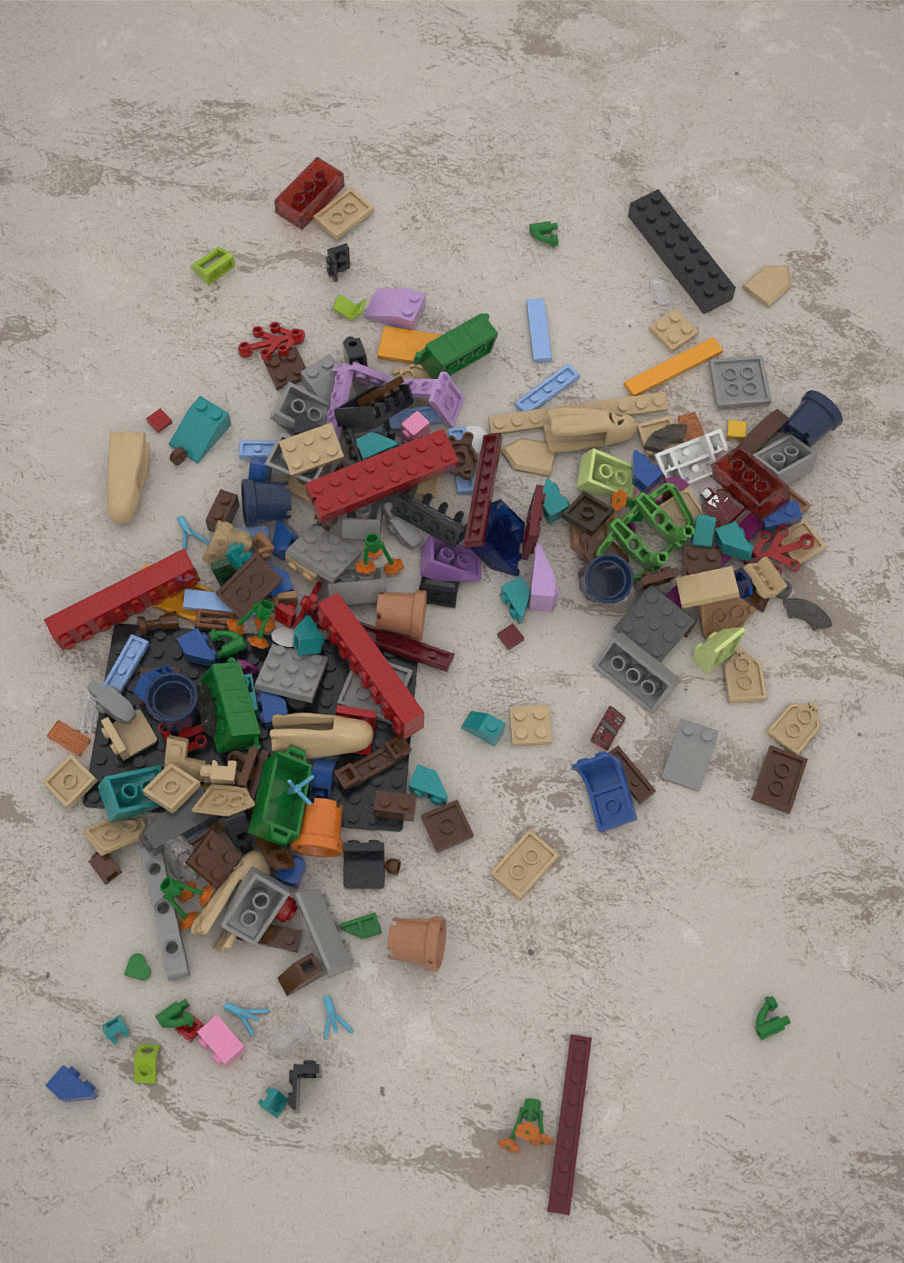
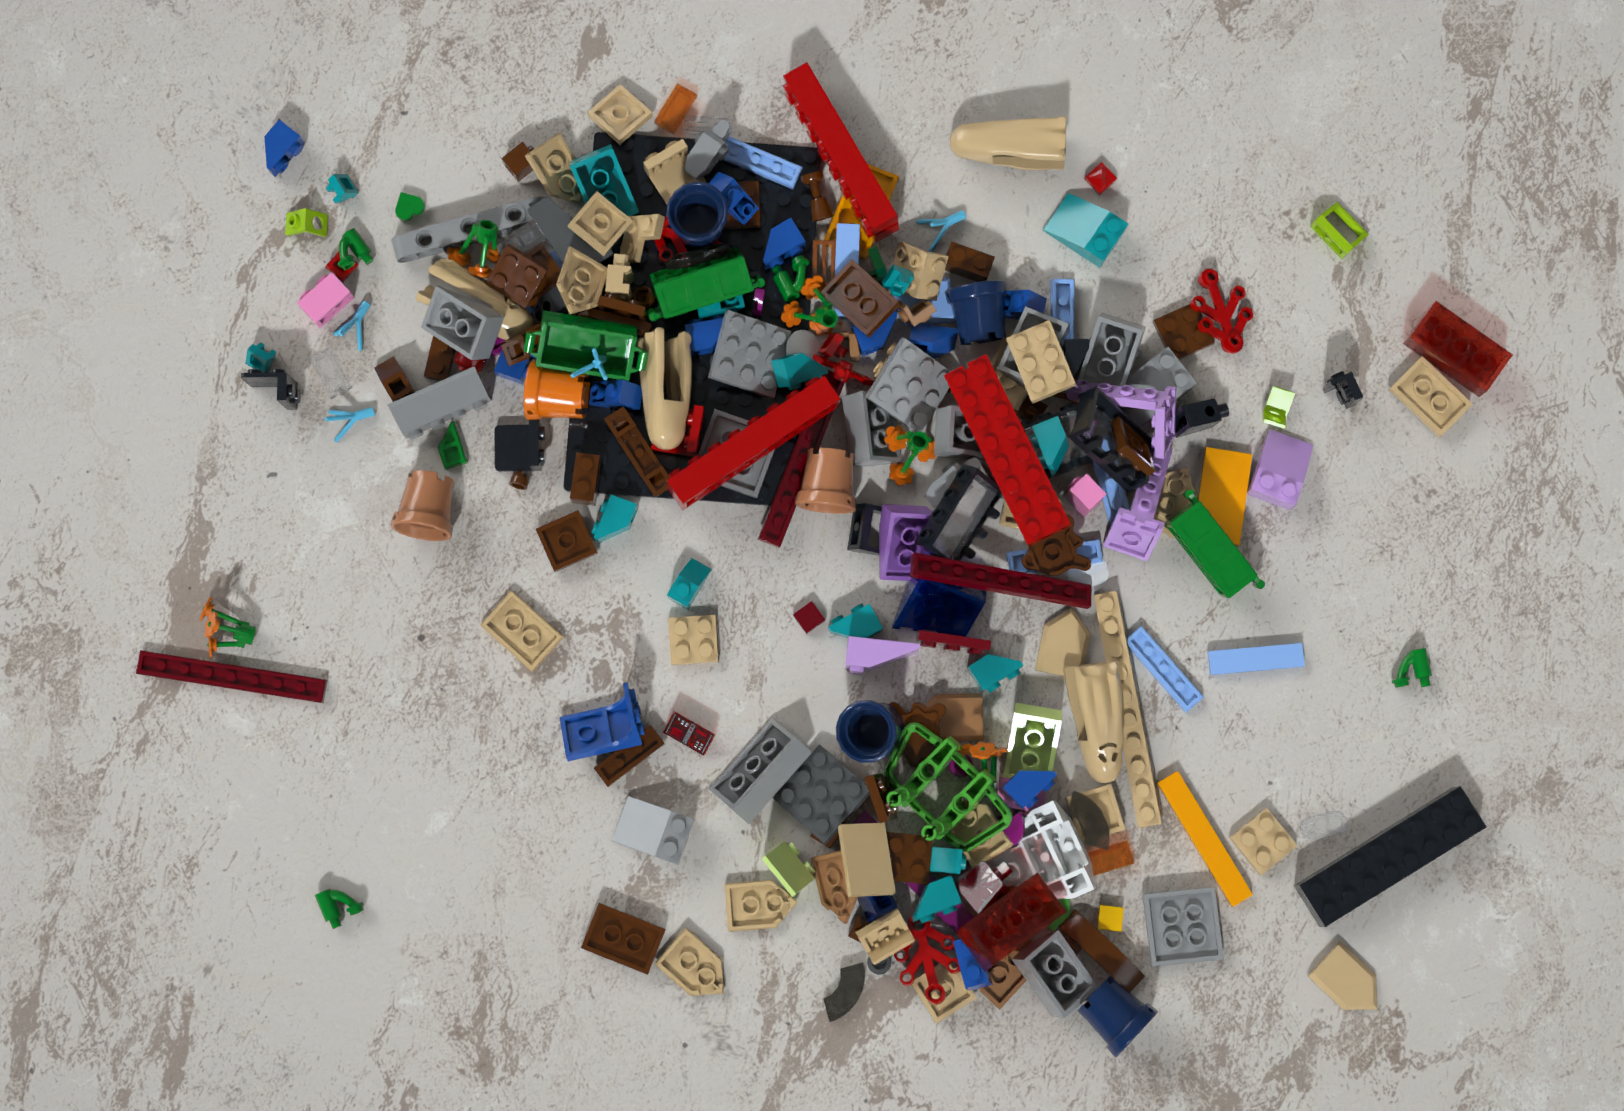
camera: 90 degrees right, 15 degrees up
(178, 455) = (1047, 205): reddish brown tile -> none
(587, 513) = (974, 713): dark brown plate -> none

